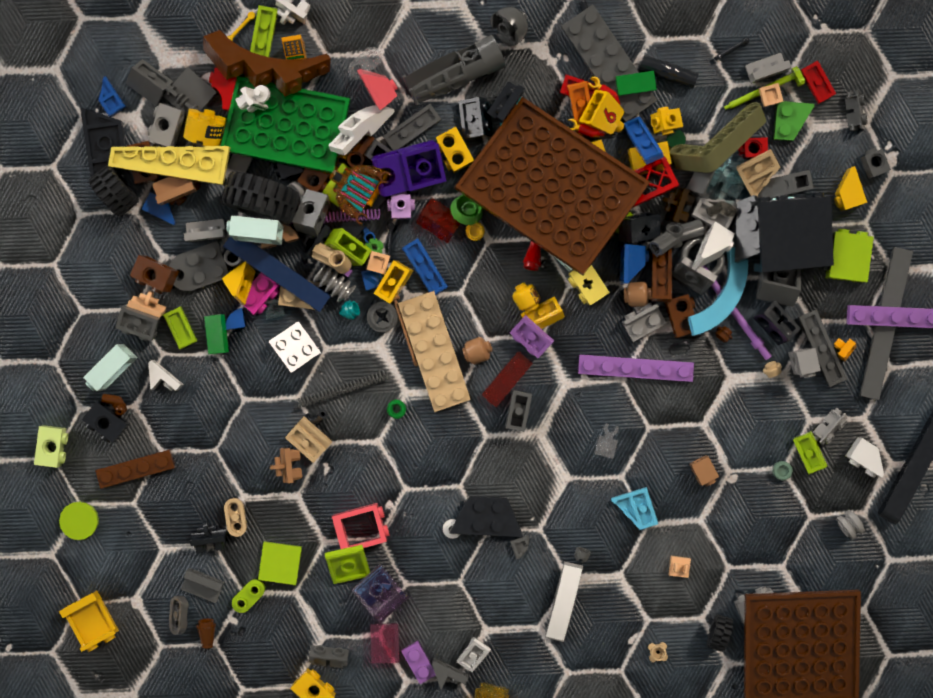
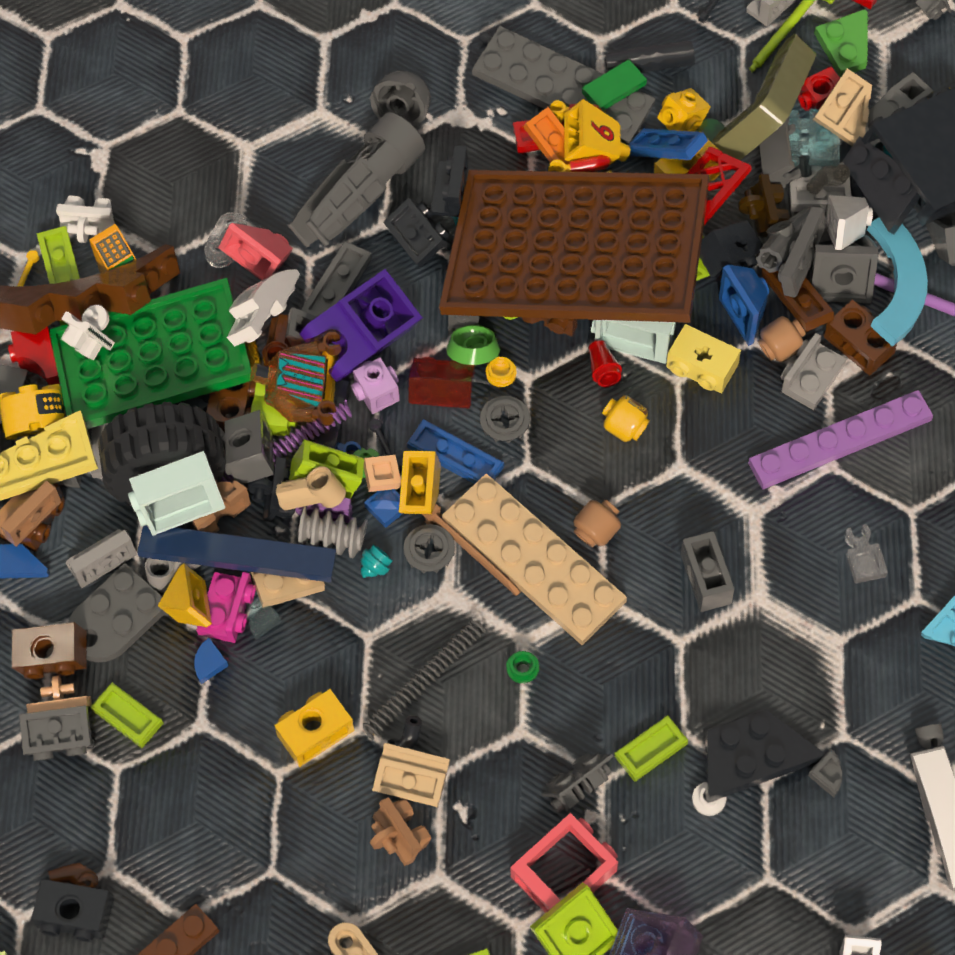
camera: 30 degrees left, 25 degrees down
(110, 367) = (42, 816): light aqua window -> none
(158, 373) = (127, 793): white slope -> none
(216, 334) = (188, 694): green tile -> none
(261, 392) = (305, 743): none -> yellow brick
(294, 347) = (318, 654): hinge -> none
(390, 486) = (587, 766): none -> dark grey hinge
(438, 486) = (651, 748): none -> lime tile
(457, 253) = (514, 409): none -> dark grey gear
(458, 148) = (416, 277): yellow brick -> none
(507, 379) = (663, 545): clear red plate -> none
(531, 337) = (665, 461): medium lavender bracket -> none
(546, 313) = (664, 435): yellow slope -> none
(677, 252) = (802, 251): none -> dark grey plate
(723, 334) = (935, 334): reddish brown plate -> none
(770, 95) = (802, 21): light nougat tile -> none

